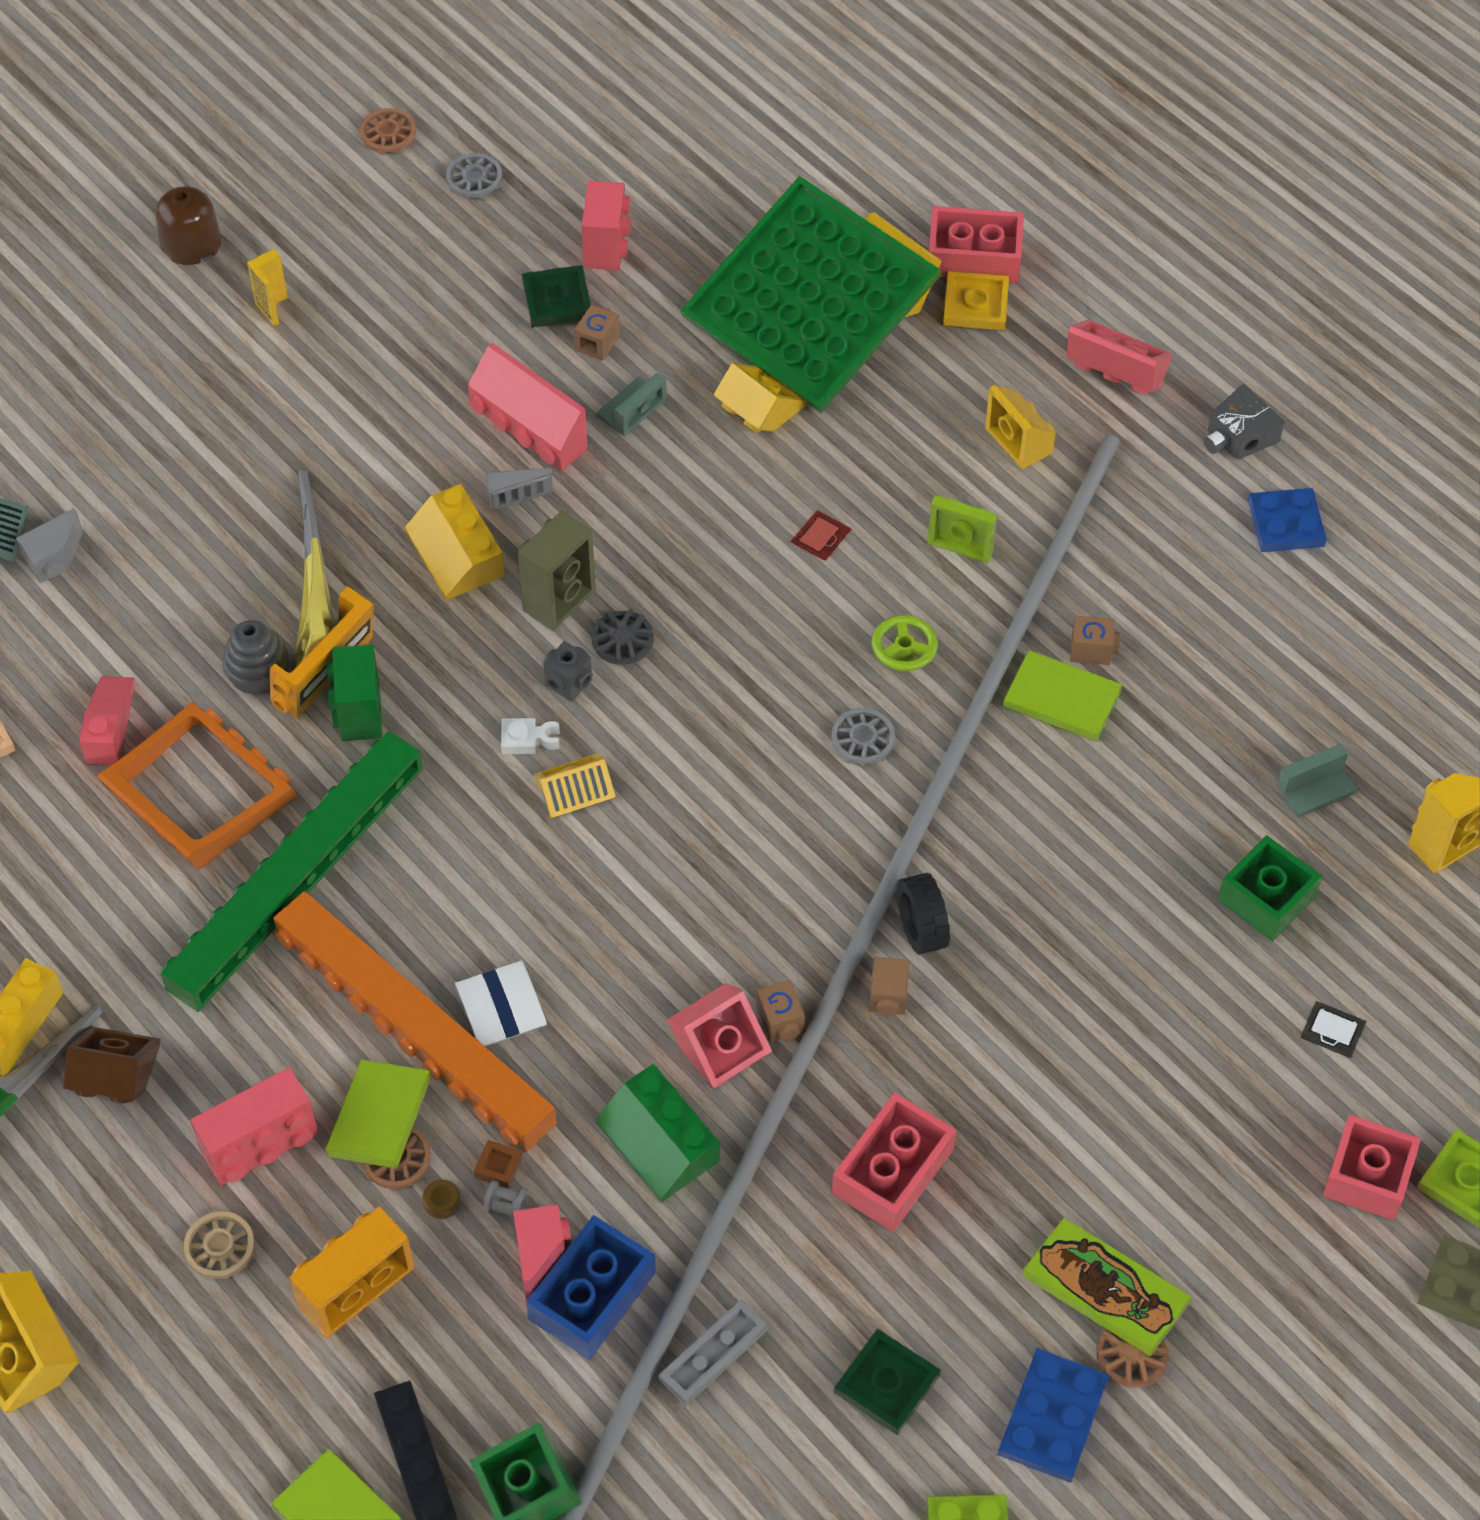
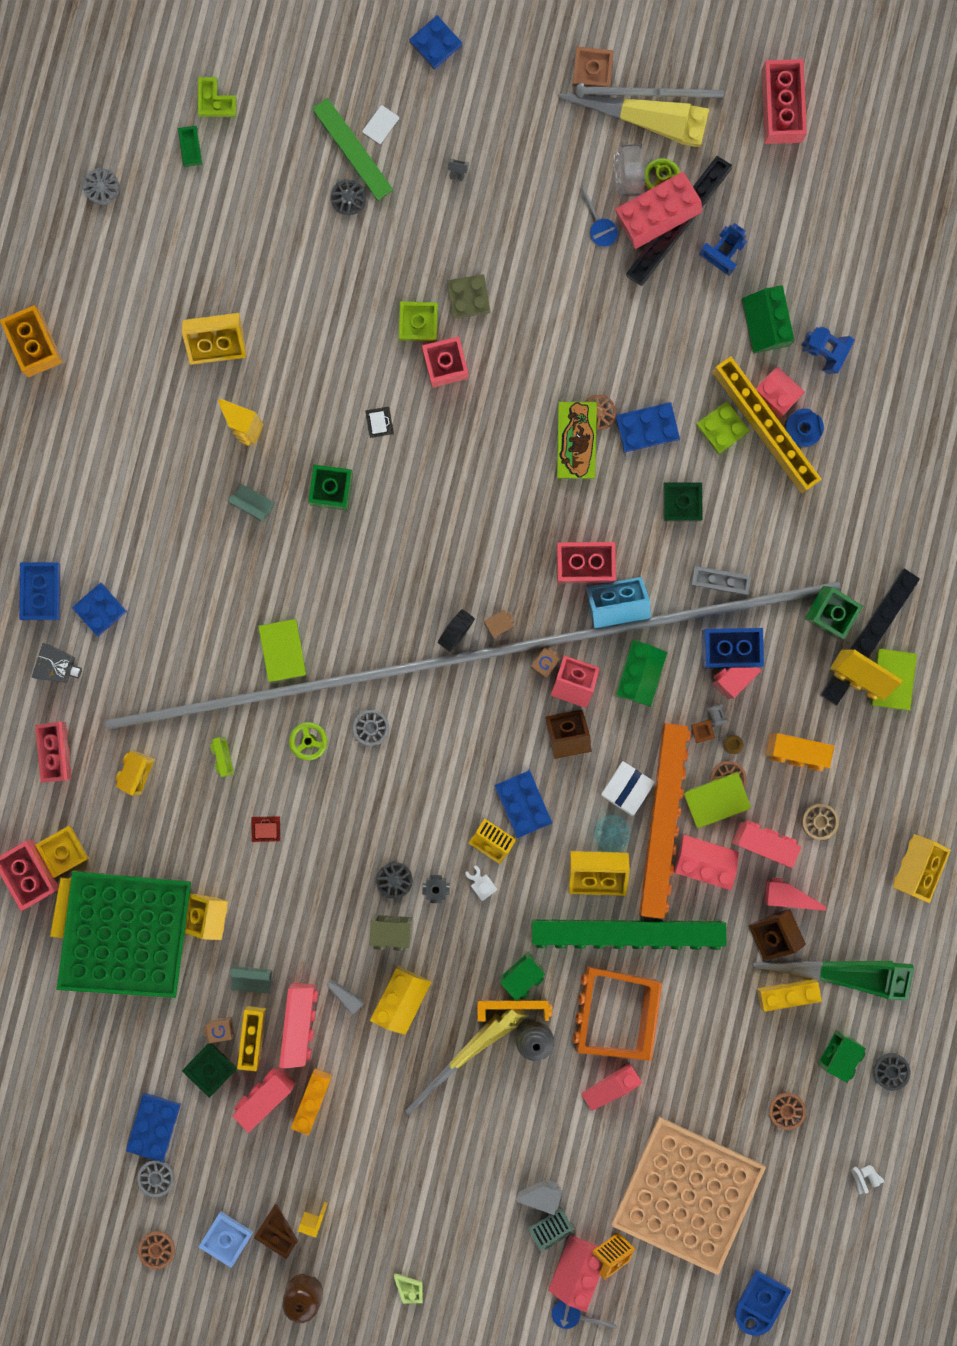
camera: 130 degrees left, 30 degrees up
(85, 343) = (409, 1289): none -> yellowish green piece
(151, 1117) = (785, 895): none -> coral slope
(295, 246) = (277, 1233): none -> reddish brown wing
(302, 1032) = (706, 862): none -> coral slope
(333, 198) = (225, 1239): none -> light blue plate
(389, 1452) = (864, 674): none -> yellow slope
(413, 885) = (598, 873): none -> yellow slope
(416, 373) = (311, 1101): none -> light orange brick
(453, 943) = (612, 833): none -> clear light blue wheel
(467, 316) = (263, 1098): none -> coral brick
(537, 206) = (153, 1127): none -> blue plate
(555, 354) = (251, 1038): none -> yellow brick
(594, 857) = (523, 804): none -> blue plate
(605, 225) = (152, 1075): coral brick -> none
(647, 974) = (568, 734): none -> reddish brown slope
(794, 1174) = (618, 602): none -> medium azure slope
(1093, 640) = (242, 654): medium nougat brick -> none
(1363, 465) = (39, 591): none -> blue plate

